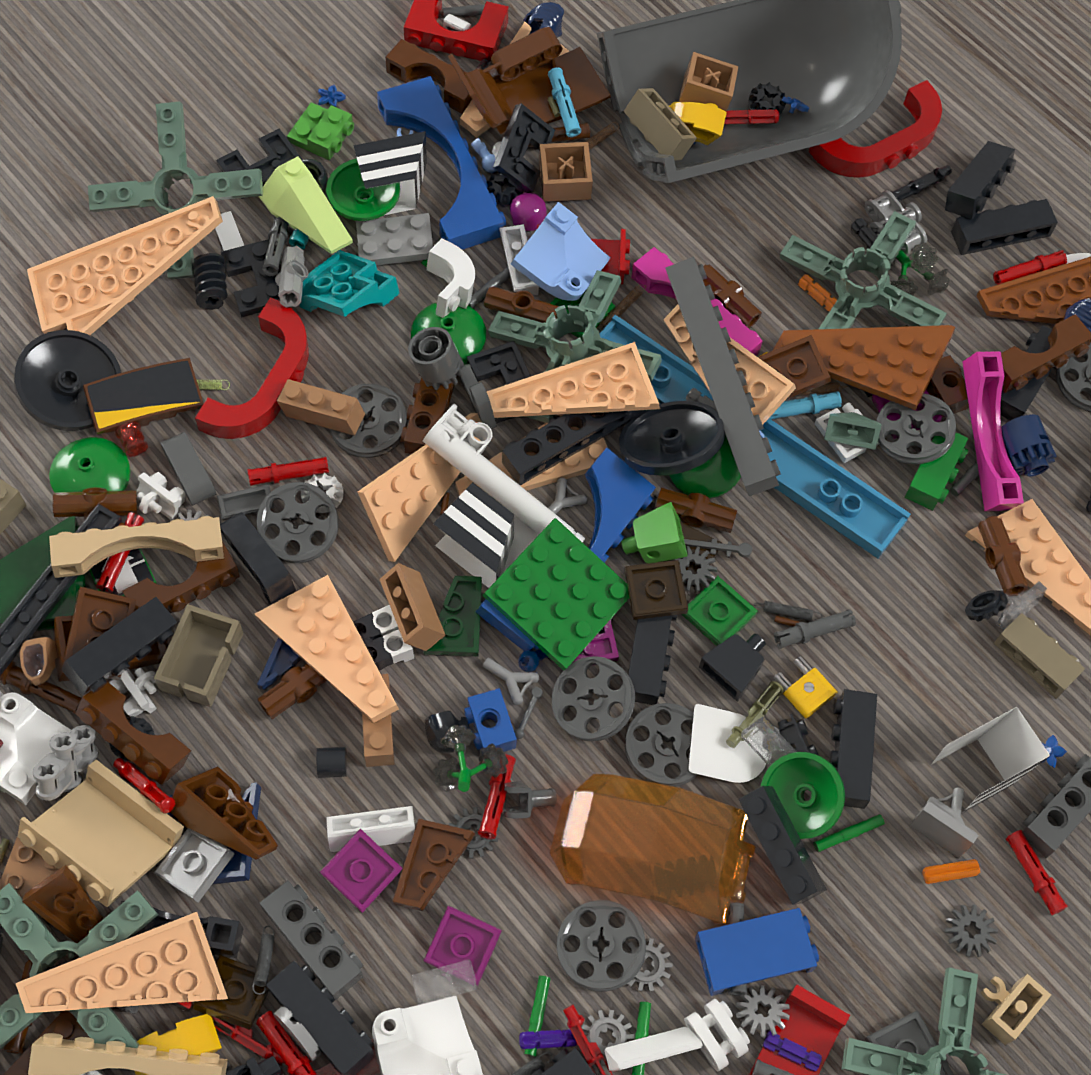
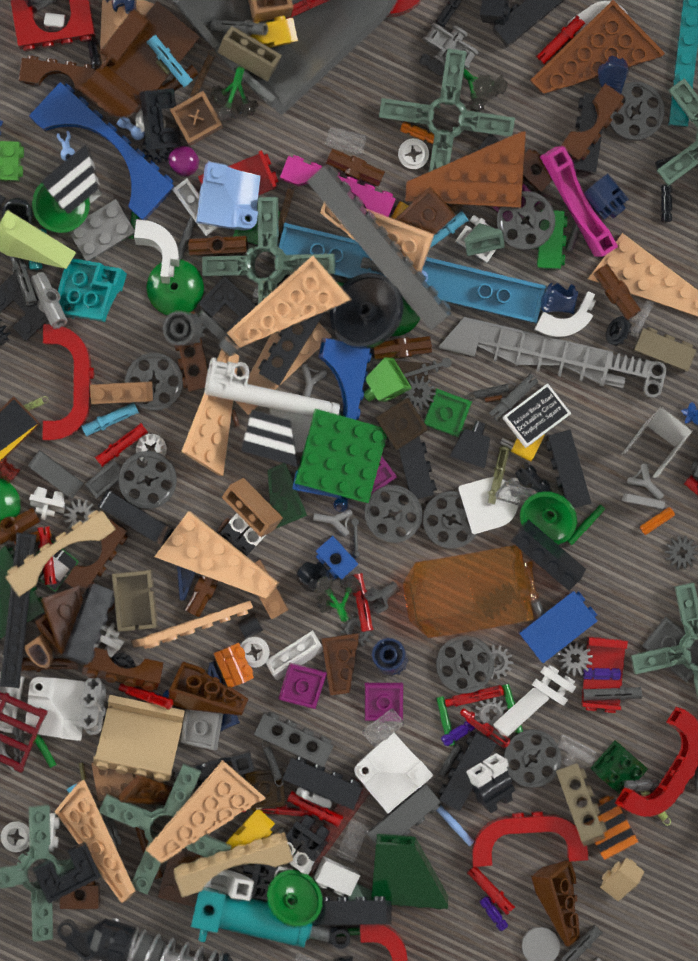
camera: 20 degrees left, 25 degrees up
(242, 716) = (189, 627): none -> light nougat wing
(282, 798) = (234, 665): none -> orange brick
(290, 437) = (109, 419): none -> medium azure pin
(311, 787) = (259, 644): none -> white gear
(501, 880) = (386, 648): none -> dark blue gear
(595, 999) = (483, 694): none -> red piece
(603, 167) = (221, 97): none -> clear smoke plant
(671, 98) = (246, 27): none -> dark grey pin
(729, 265) = (346, 140): none -> clear tile
(813, 309) = (405, 149): none -> white gear
(837, 661) = (536, 415): none -> black tile
(866, 585) = (536, 349): none -> light grey piece
(917, 573) = (558, 328): none -> white arch
(923, 535) = (559, 299): none -> dark blue hair

